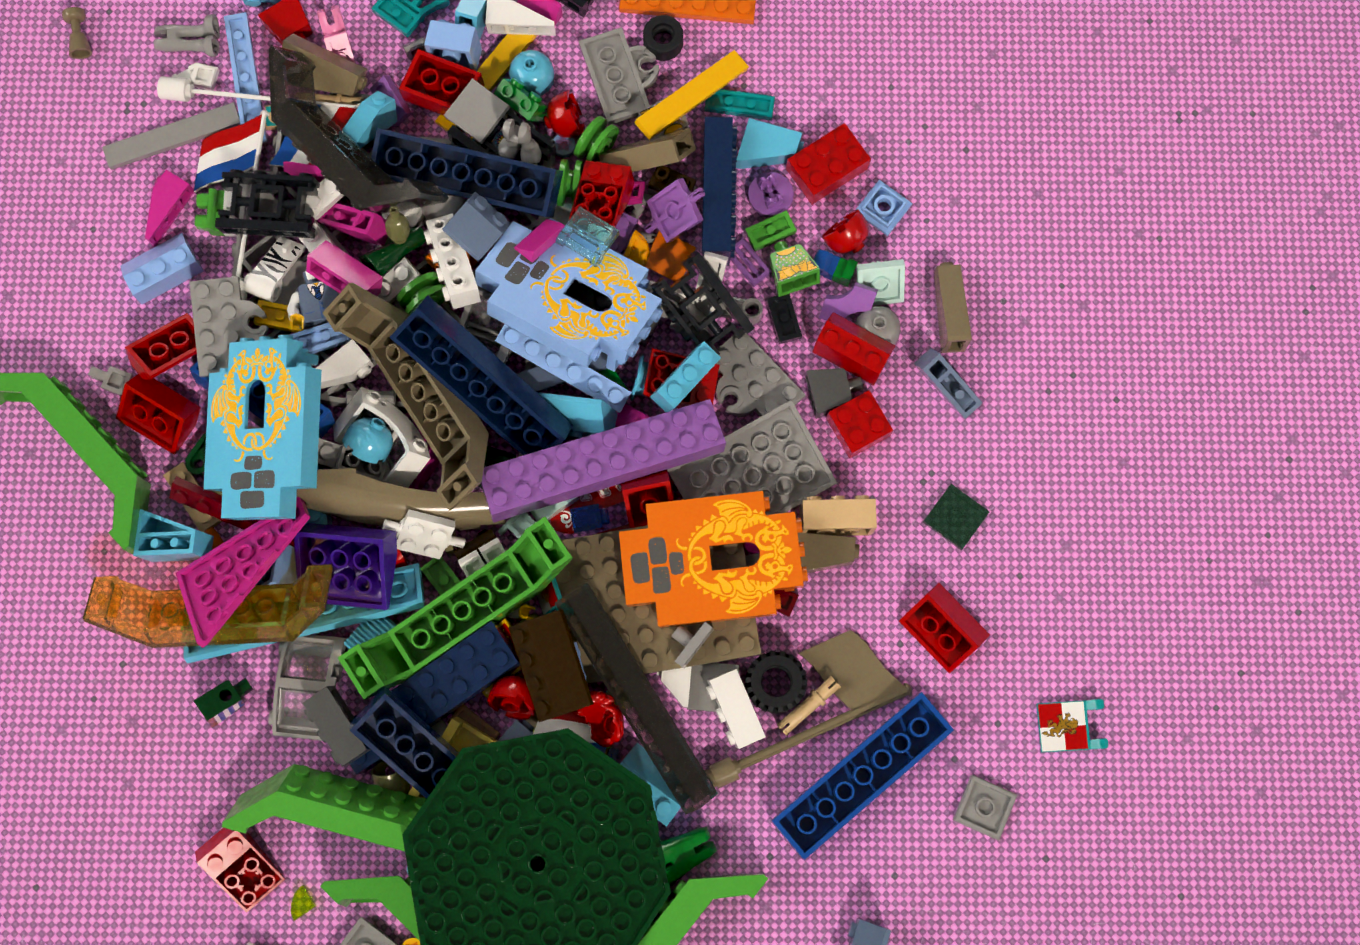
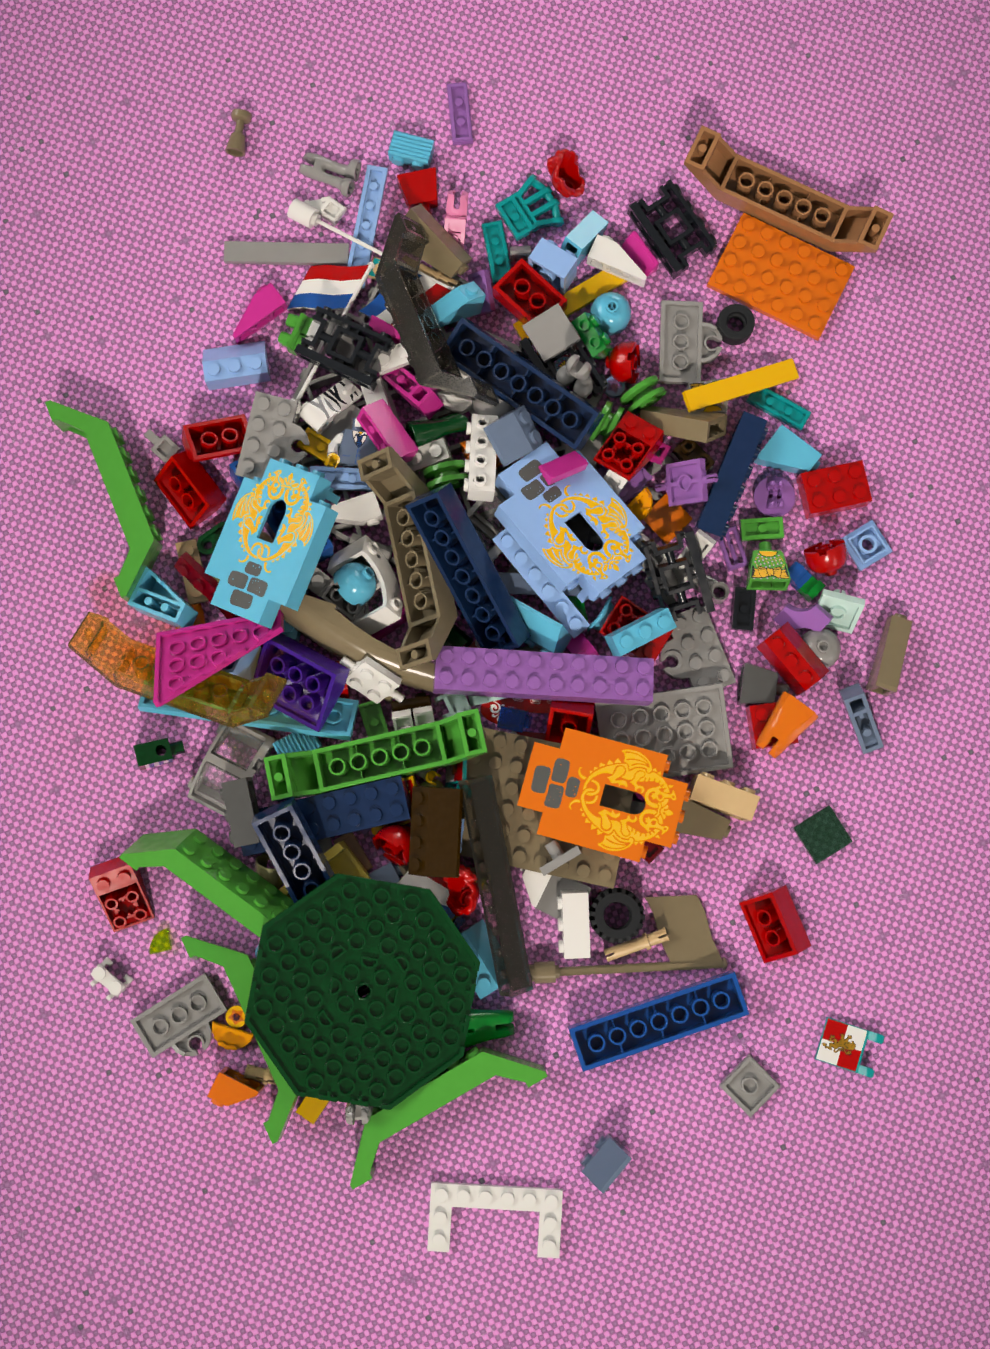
camera: 20 degrees right, 5 degrees up
(389, 52) = (496, 249): none -> teal tile
(397, 226) = (446, 410): olive plant -> none
(592, 230) = (609, 475): clear light blue plate -> none
(872, 414) = (786, 723): none -> orange piece

